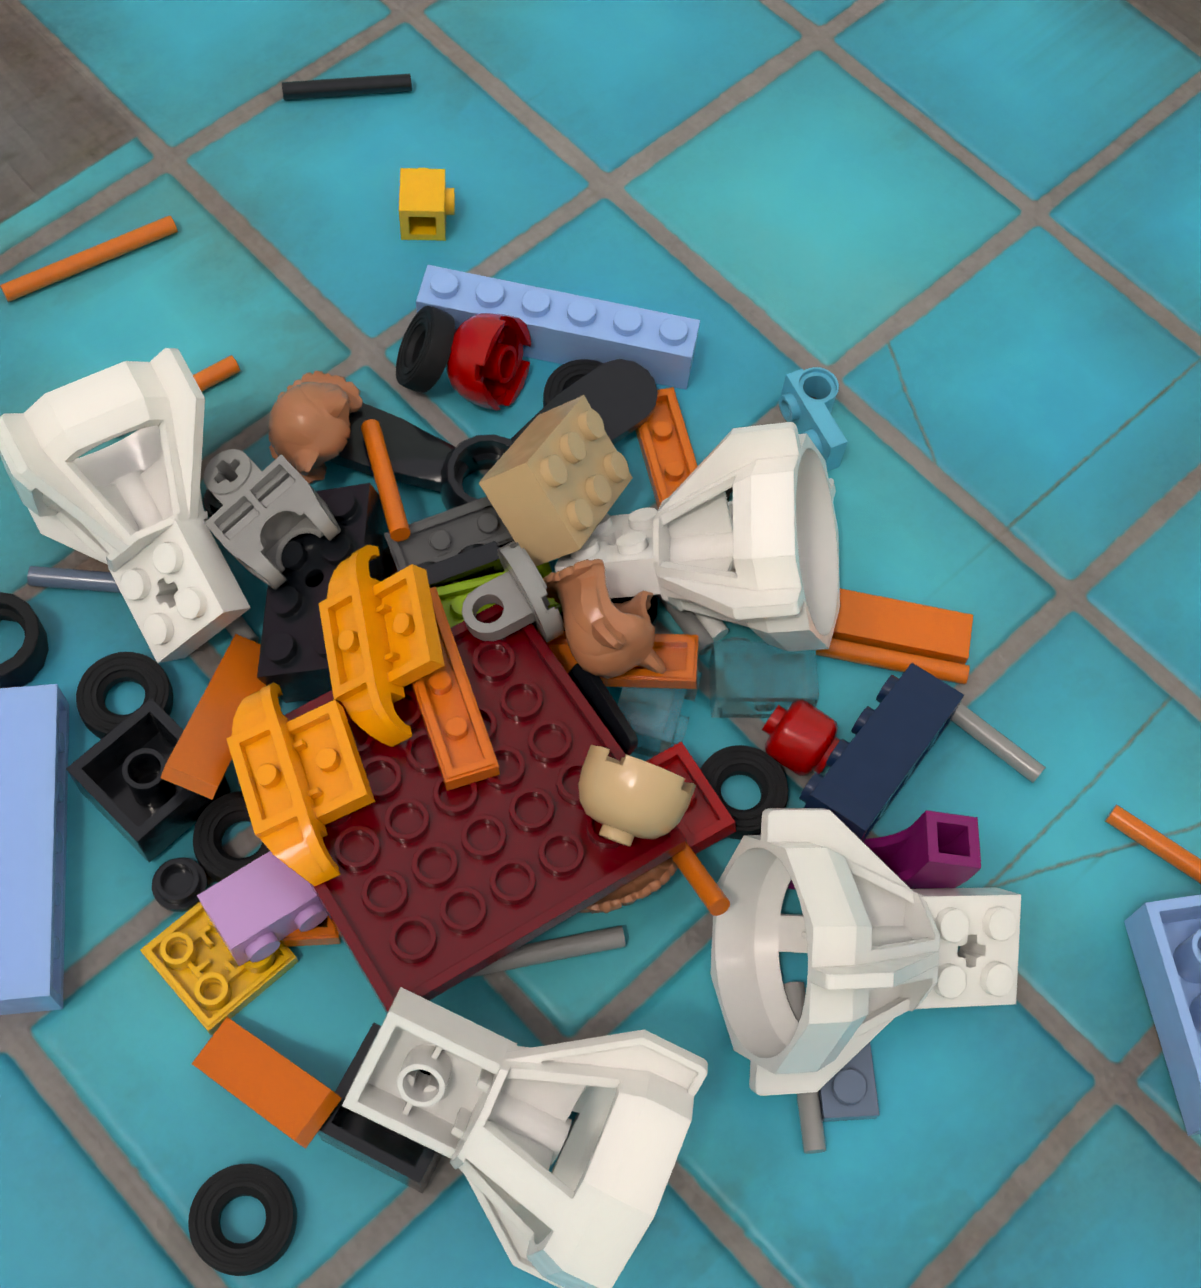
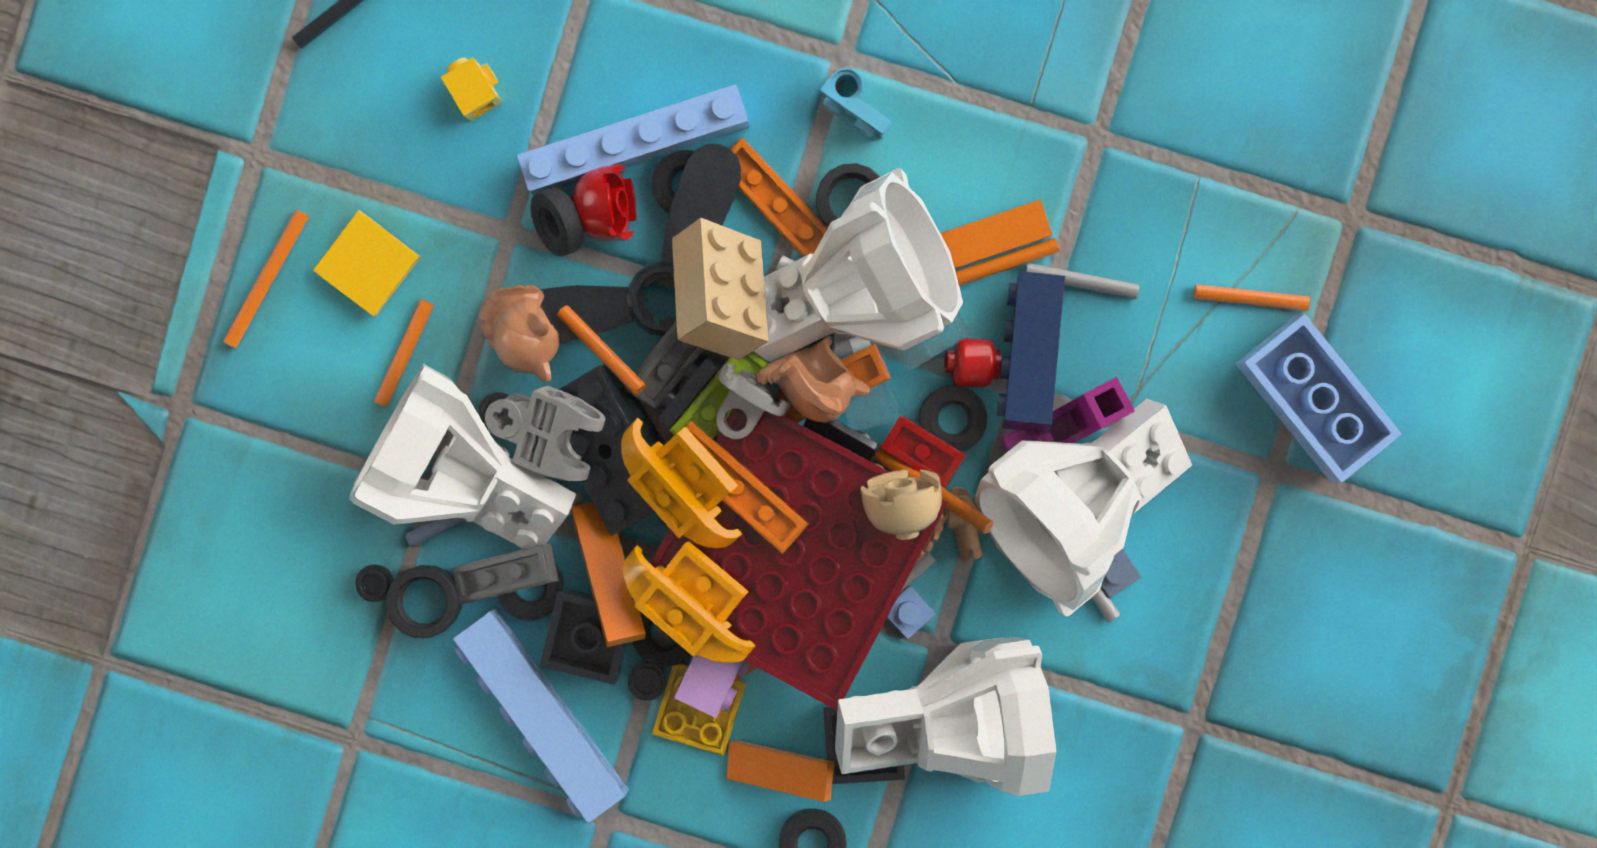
camera: 25 degrees left, 25 degrees up
(107, 656) = (505, 573): none -> dark grey tile
(201, 294) = (367, 263): none -> yellow tile
(554, 989) = (910, 612): none -> light blue plate
(684, 922) = (965, 534): none -> medium nougat piece

